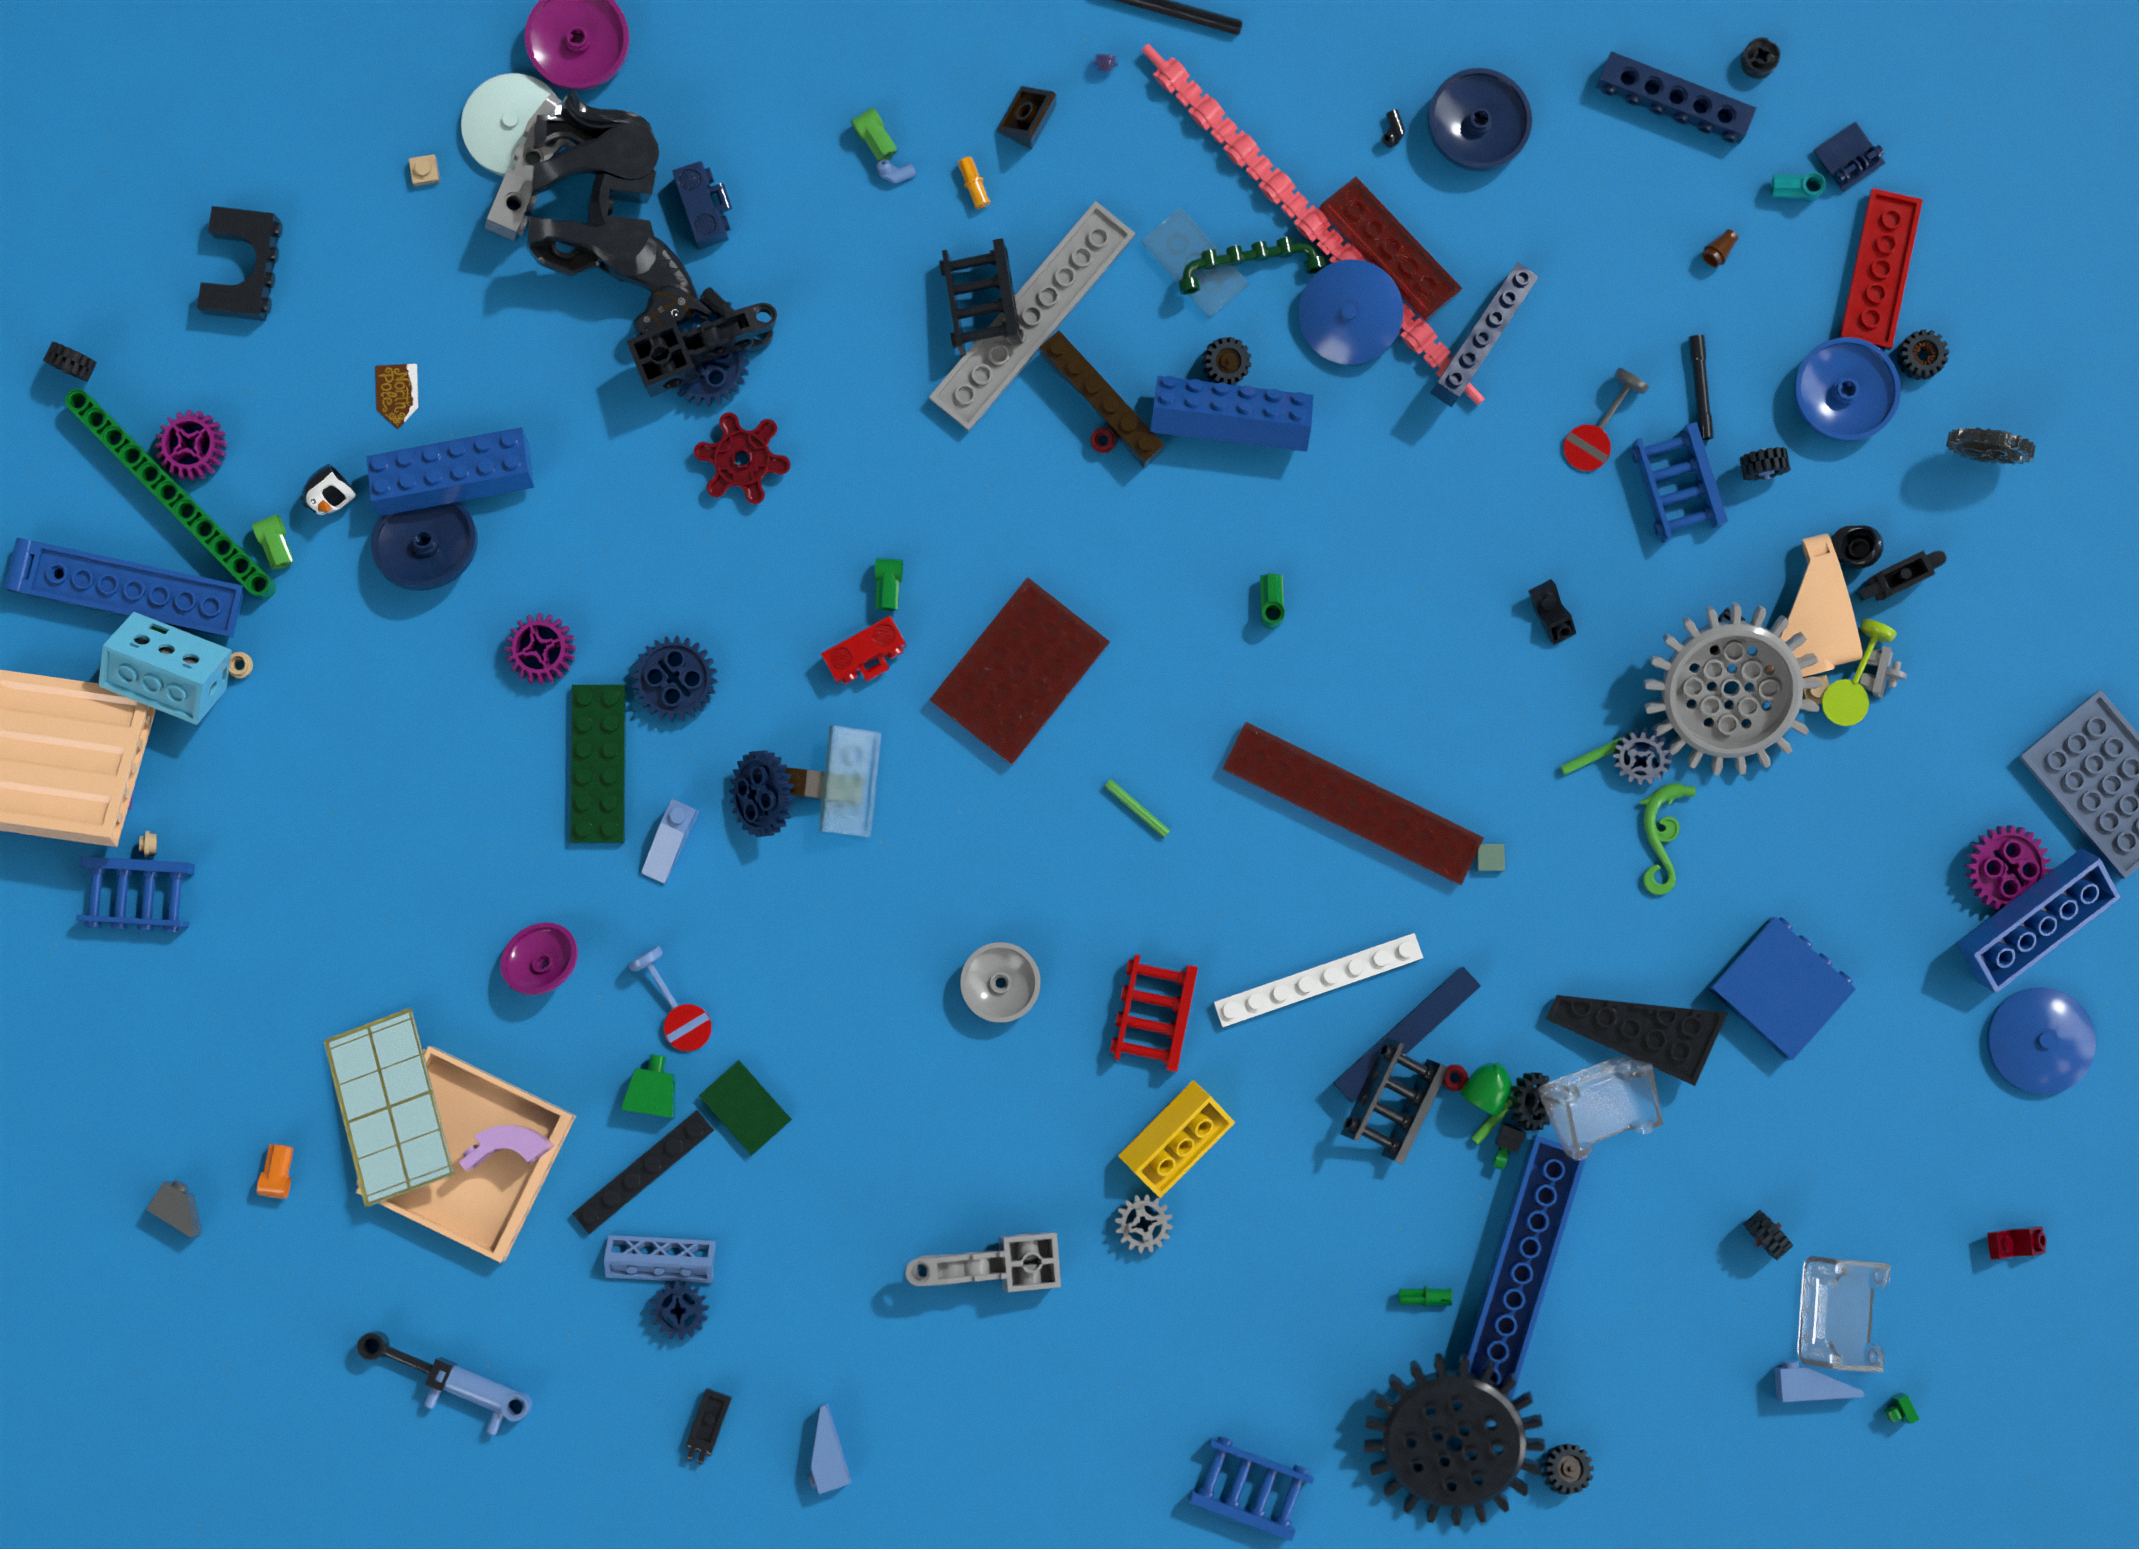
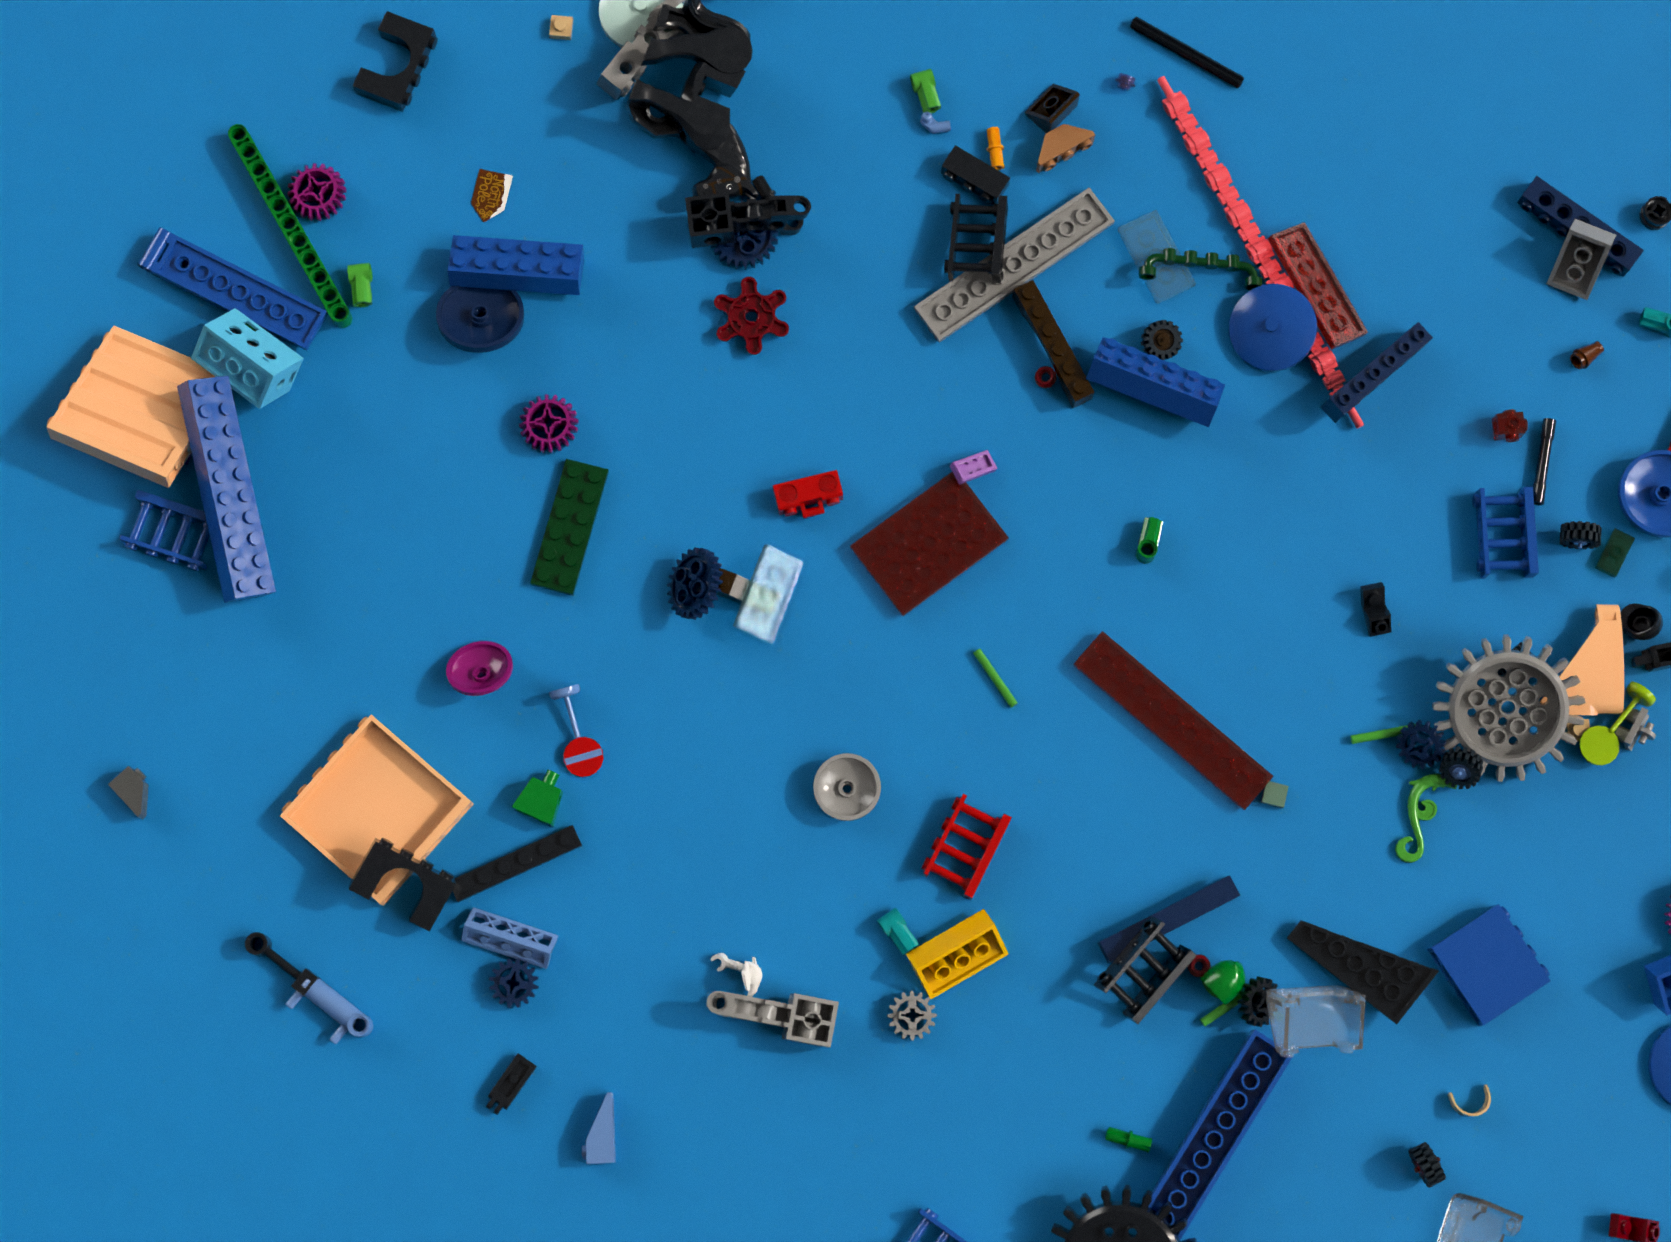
camera: 15 degrees right, 5 degrees down
(69, 361) = (240, 101): black tyre -> none
(148, 844) = (193, 495): tan plate -> none
(184, 828) = (226, 488): none -> brick
(248, 665) = (311, 378): tan plate -> none
(275, 1178) = (218, 788): orange piece -> none
(326, 491) = (413, 255): piece -> none
(388, 1107) = (325, 755): clear light blue piece -> none
(491, 1209) = (383, 858): none -> black arch
(518, 1138) = (411, 803): lavender arch -> none
(669, 840) = (610, 602): medium blue slope -> none
(692, 663) = (667, 467): dark blue gear -> none
(695, 191) = (772, 120): dark blue piece -> none
(745, 1107) = (612, 834): dark green tile -> none
(888, 577) = (843, 439): green piece -> none
(947, 1226) = (750, 971): none -> white piece
(958, 222) = (974, 175): none -> black brick
(1047, 569) = (973, 467): none -> medium lavender plate
(1050, 158) = (1062, 144): none -> medium nougat slope
(1100, 1129) = (895, 927): none -> teal piece
(1318, 980) = (1107, 856): white plate -> none
(1395, 130) = (1345, 195): black arm -> none
(1479, 119) = (1416, 202): dark blue dish -> none
(1509, 1139) = (1231, 1028): black piece -> none
(1588, 445) = (1439, 484): piece -> none
(1652, 356) = (1509, 425): none -> clear red brick
(1686, 137) = (1581, 259): none -> light grey slope
(1695, 772) = (1461, 767): none -> black wheel
(1808, 472) = (1614, 552): none -> clear green plate
(1812, 1158) = (1483, 1109): none -> tan helmet

